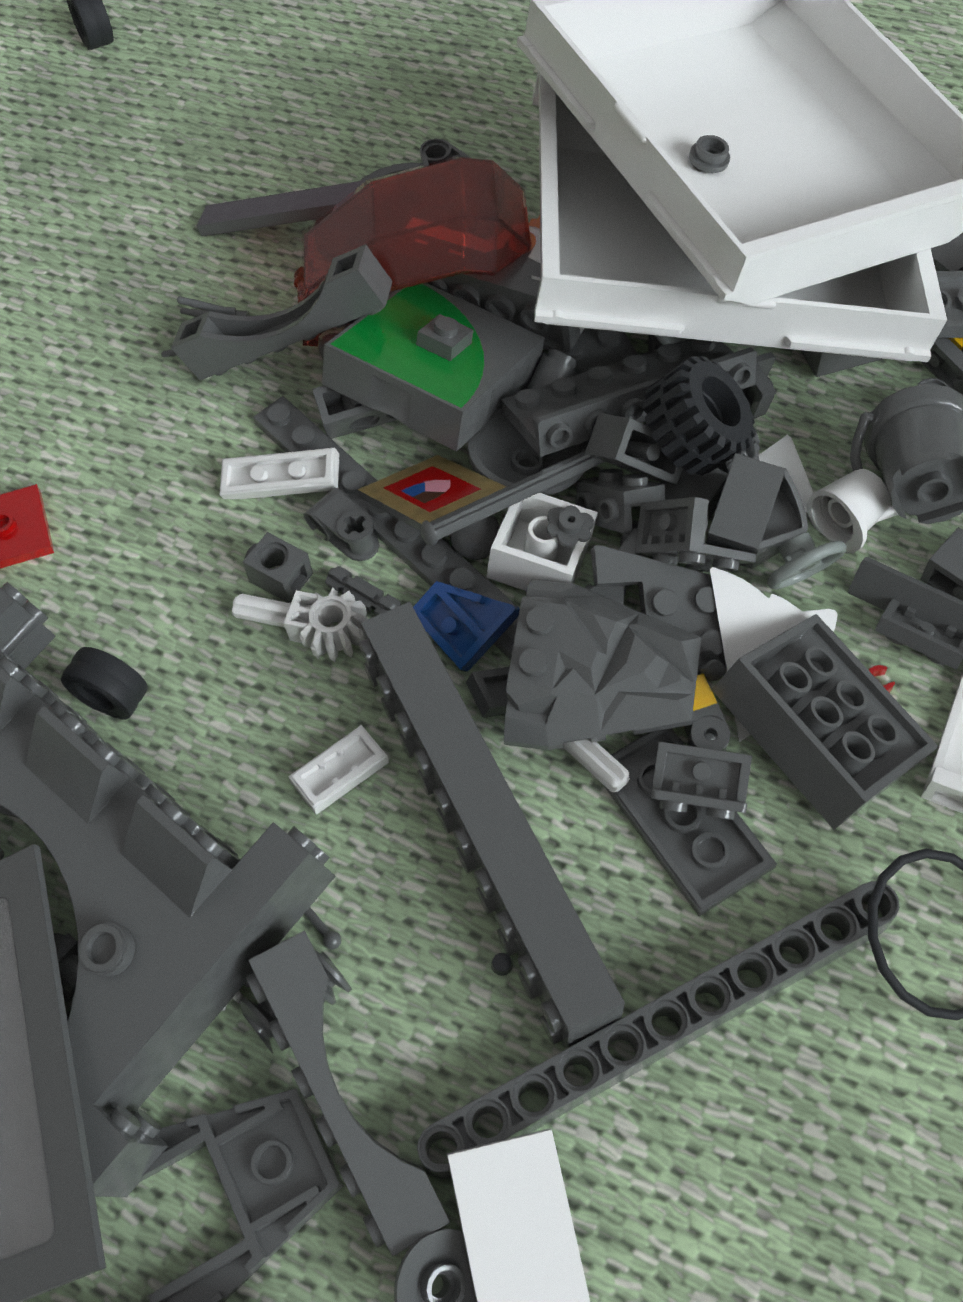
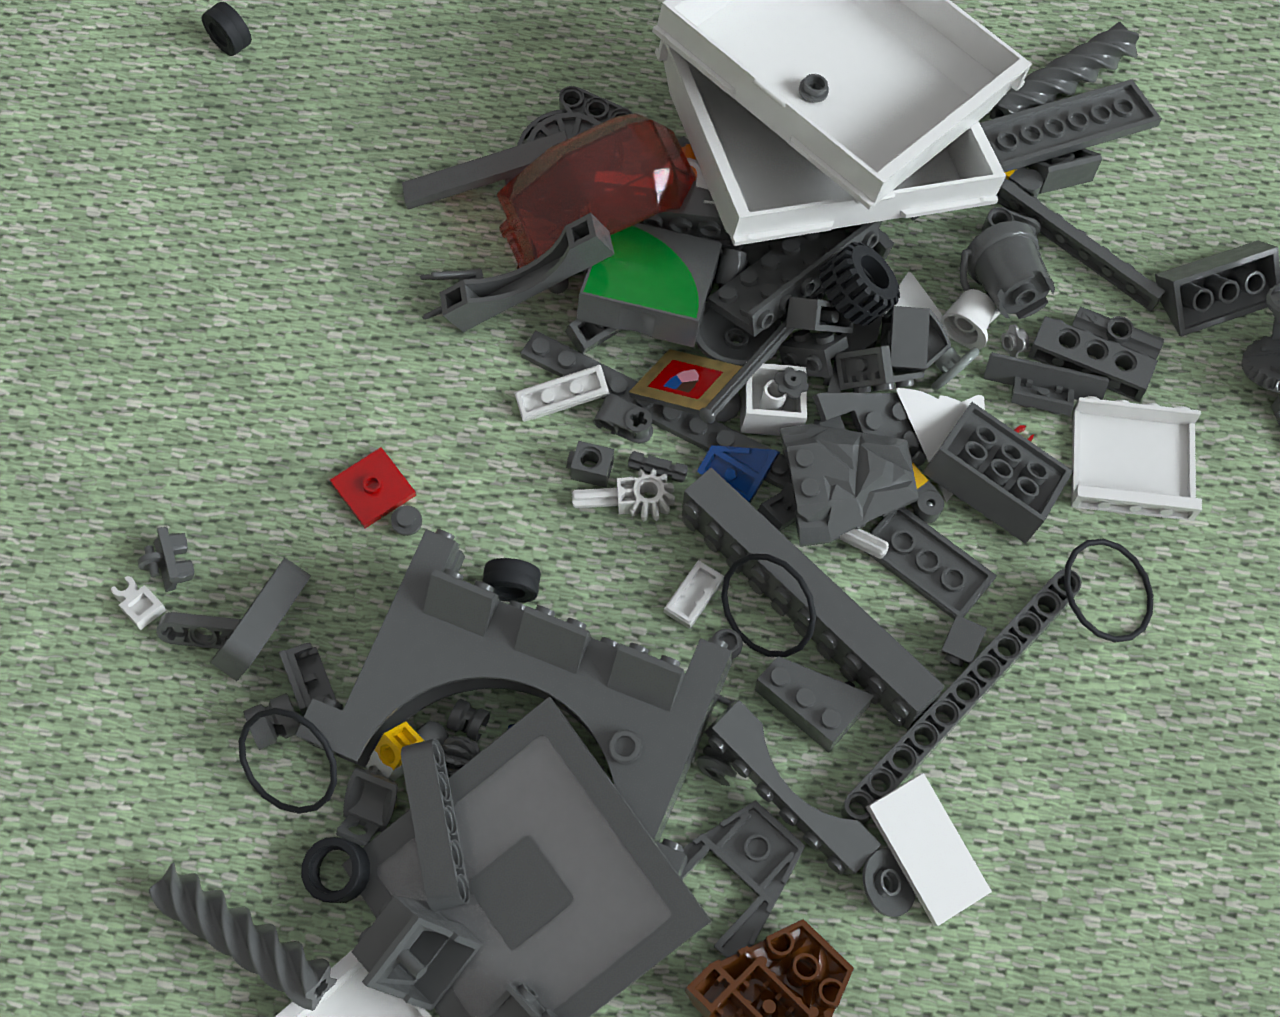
camera: 25 degrees left, 5 degrees up
(25, 576) = (406, 520): none -> dark grey plate
(355, 850) = (733, 640): none -> dark grey plate
(440, 967) = (812, 700): none -> dark grey wedge
(444, 337) = (658, 264): dark grey plate -> none
(463, 799) = (804, 587): none -> black piece
(689, 944) = (962, 641): none -> dark grey brick
(701, 778) = (935, 534): dark grey bracket -> none
(907, 552) = (1015, 340): none -> light grey plate

